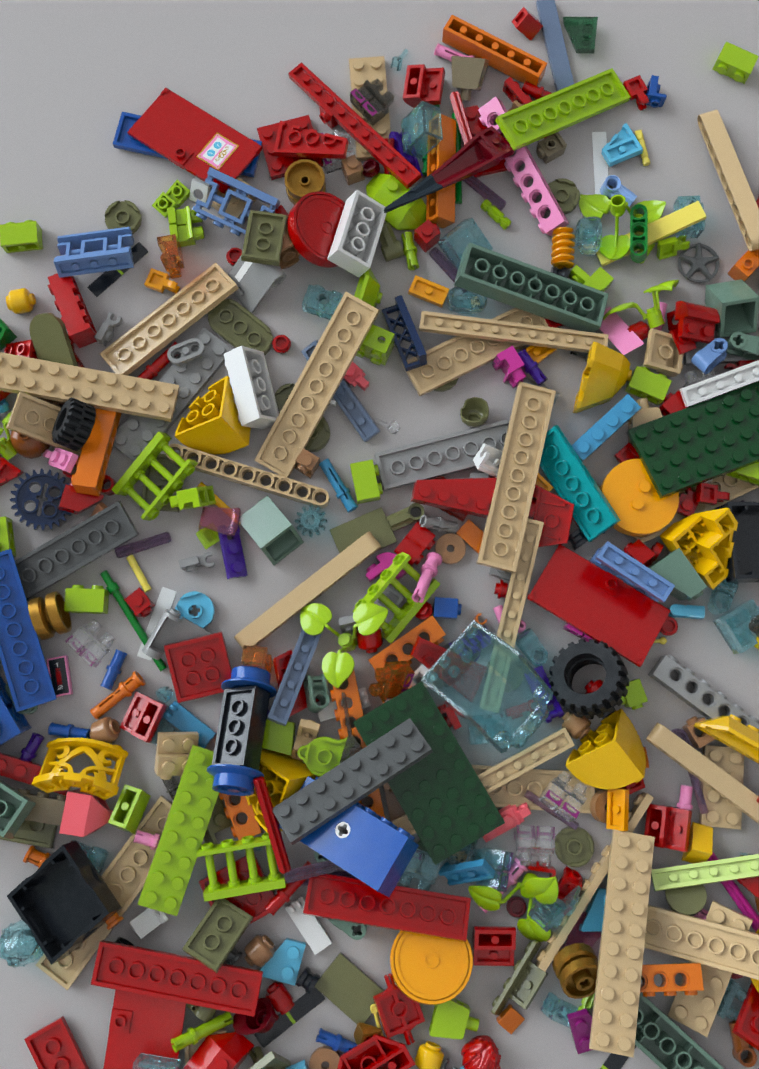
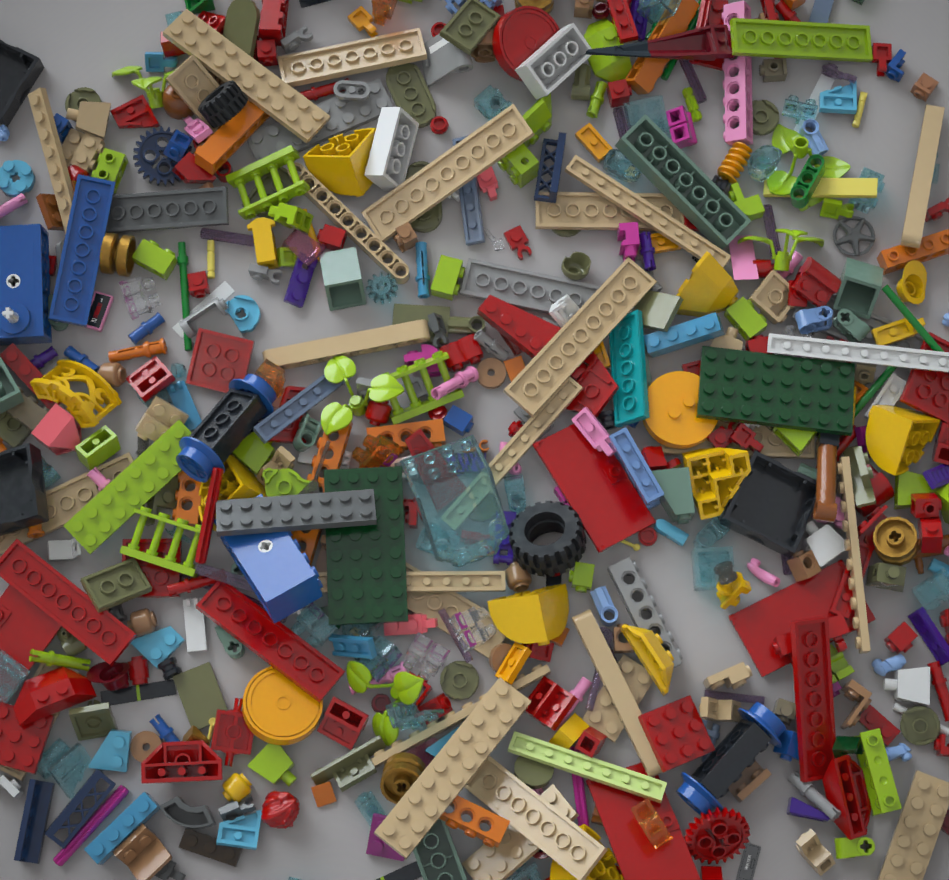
camera: 30 degrees right, 5 degrees down
(51, 484) = (177, 146): none -> blue bracket
(88, 354) = (267, 52): none -> red brick
(180, 533) = (264, 242): none -> yellow piece
(240, 497) = (332, 237): none -> red brick
(381, 532) = (437, 326): none -> dark grey plate
(408, 414) = (517, 240): none -> red plate
(501, 238) = (681, 127): none -> dark pink hips
(572, 416) = (658, 310): none -> tile
(574, 557) = (593, 431): none -> bright pink hinge
(592, 173) = (799, 110): none -> clear light blue hips
(600, 124) = (830, 70): none -> clear purple plate
(625, 293) = (770, 227): none -> clear purple axle
(664, 709) = (604, 604): none -> light blue piece
(686, 100) = (924, 87): none -> nougat bracket
(723, 843) = (591, 741): none -> red brick

